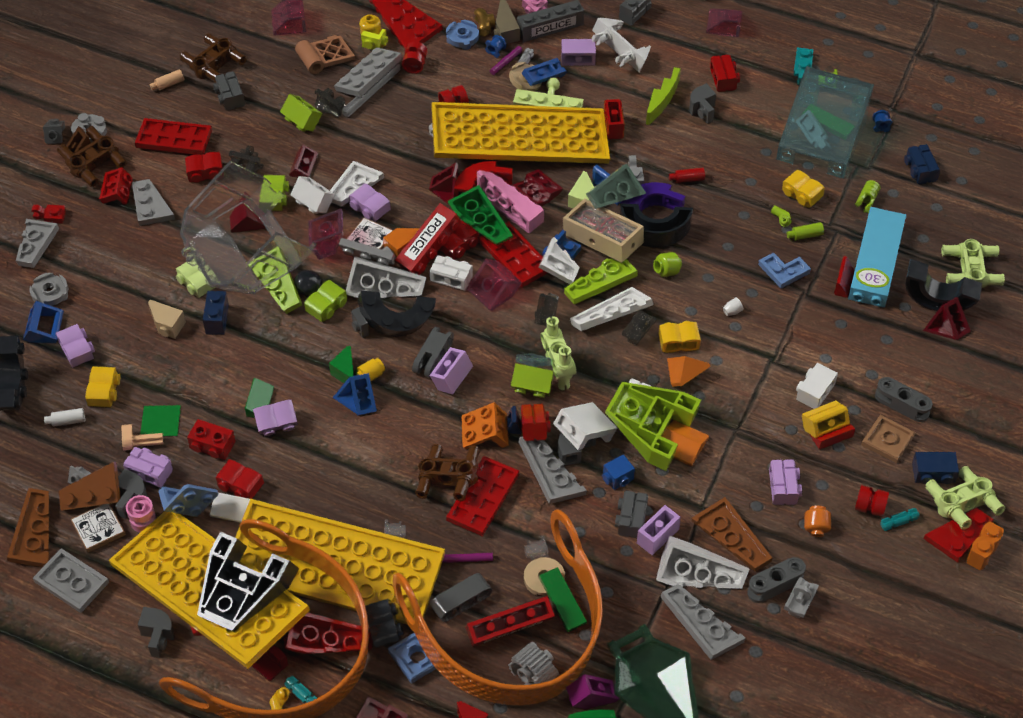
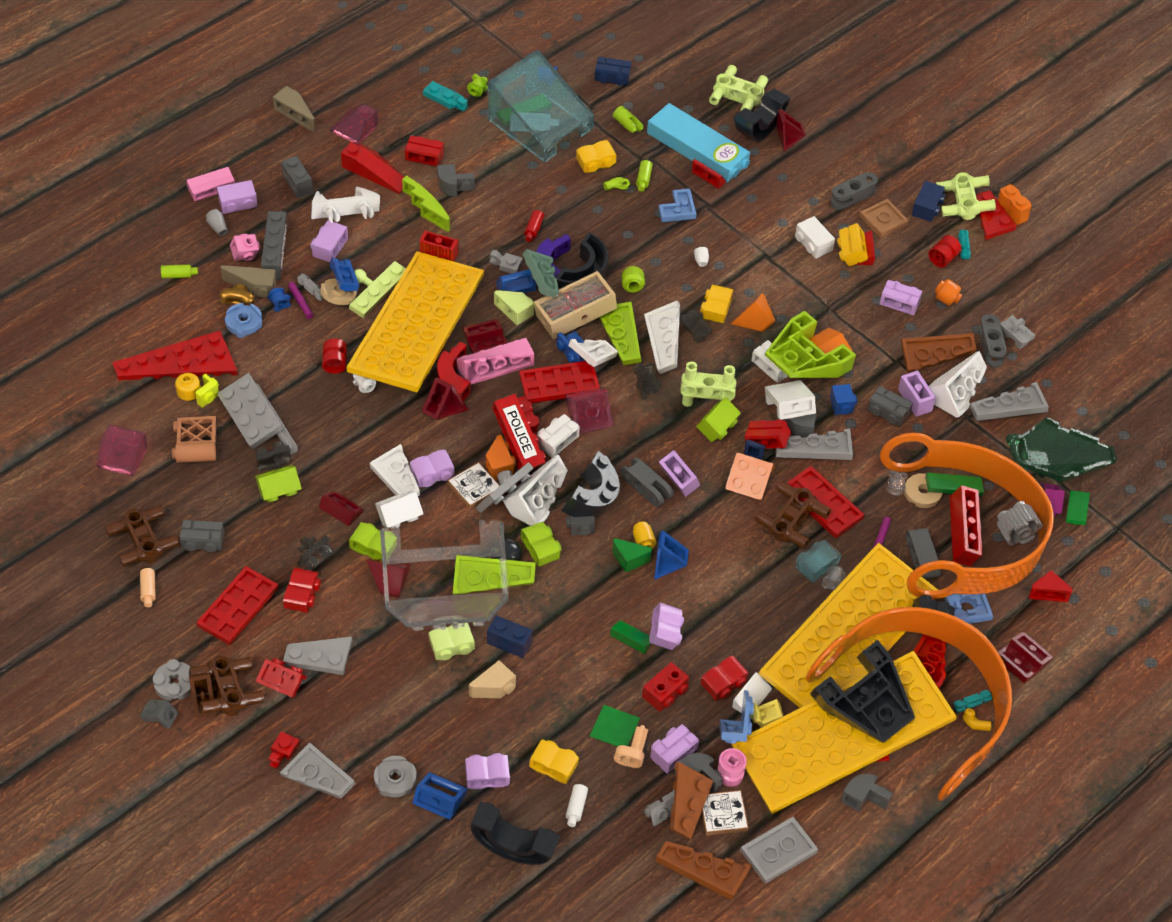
camera: 70 degrees left, 0 degrees up
(212, 522) = (767, 713): none -> light yellow bracket
(326, 233) = (464, 508): clear pink slope -> none
(410, 511) = (817, 560): none -> clear light blue brick
(414, 57) = (258, 367): red wheel -> none
(480, 214) = (498, 384): green wedge -> none
(533, 360) = (698, 410): clear light blue tile -> none
(686, 46) = (371, 166): none -> red wedge

